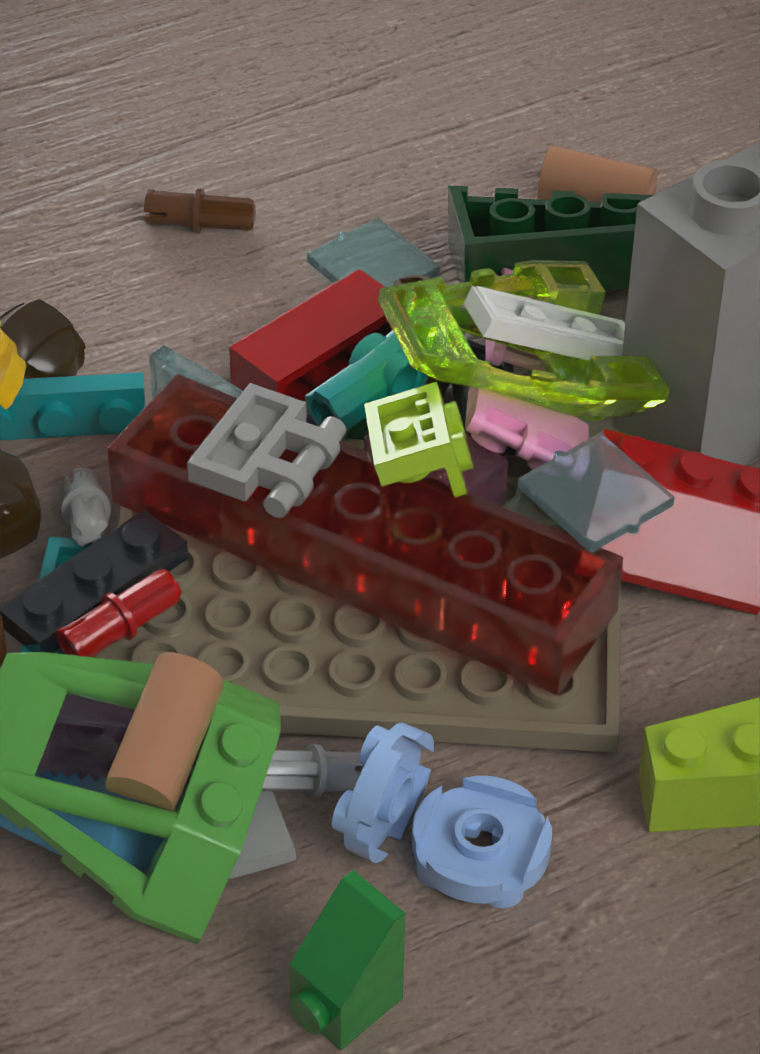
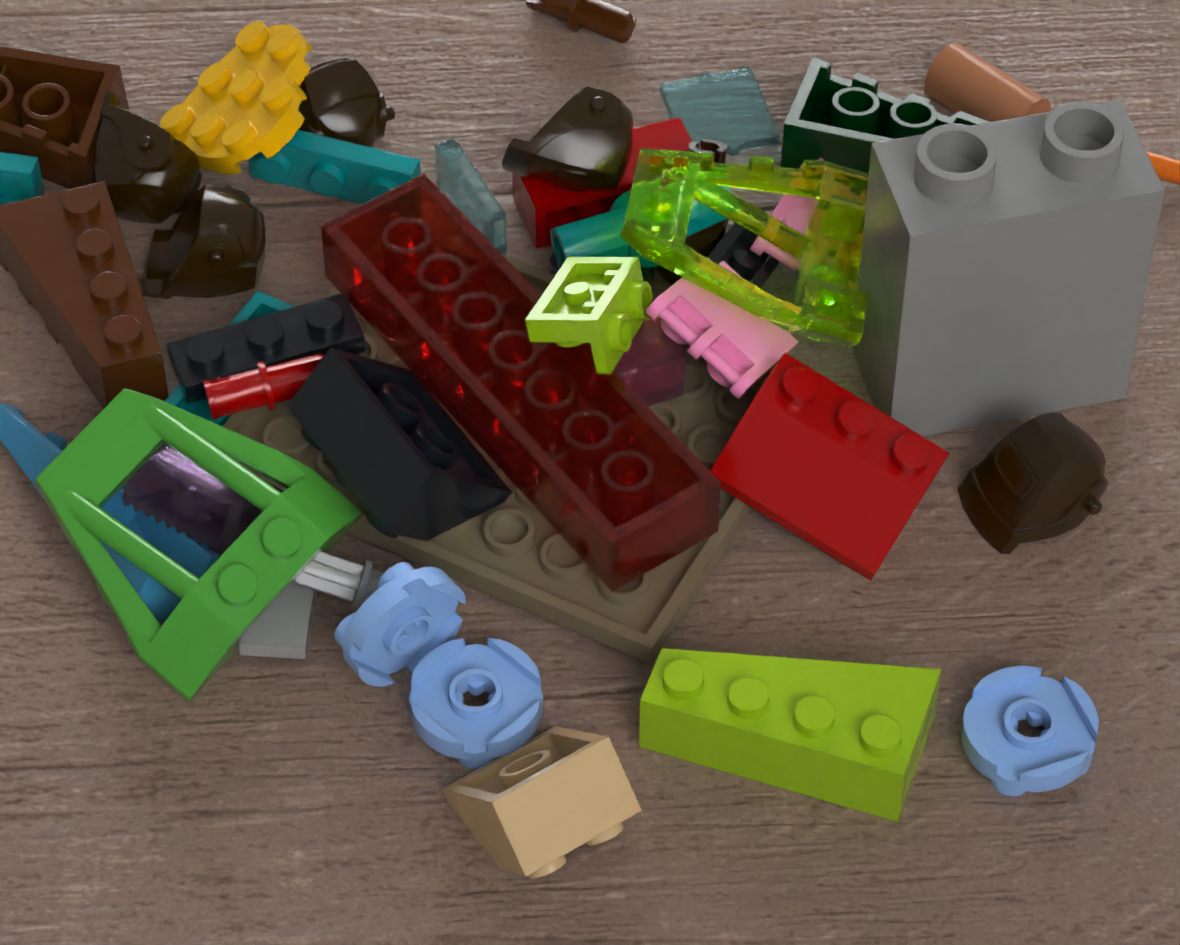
camera: 25 degrees right, 5 degrees up
(85, 506) = (300, 275): light grey axle -> none
(165, 731) = (216, 504): nougat brick -> none
(248, 445) = (438, 260): light grey plate -> none
(278, 633) = (394, 446): none -> black slope
(306, 313) = (580, 146): none -> dark brown helmet
(349, 963) = (281, 766): green slope -> none
(544, 325) = (790, 230): white tile -> none
(596, 492) = (731, 412): clear light blue piece -> none
(606, 907) = (545, 800): none -> tan slope

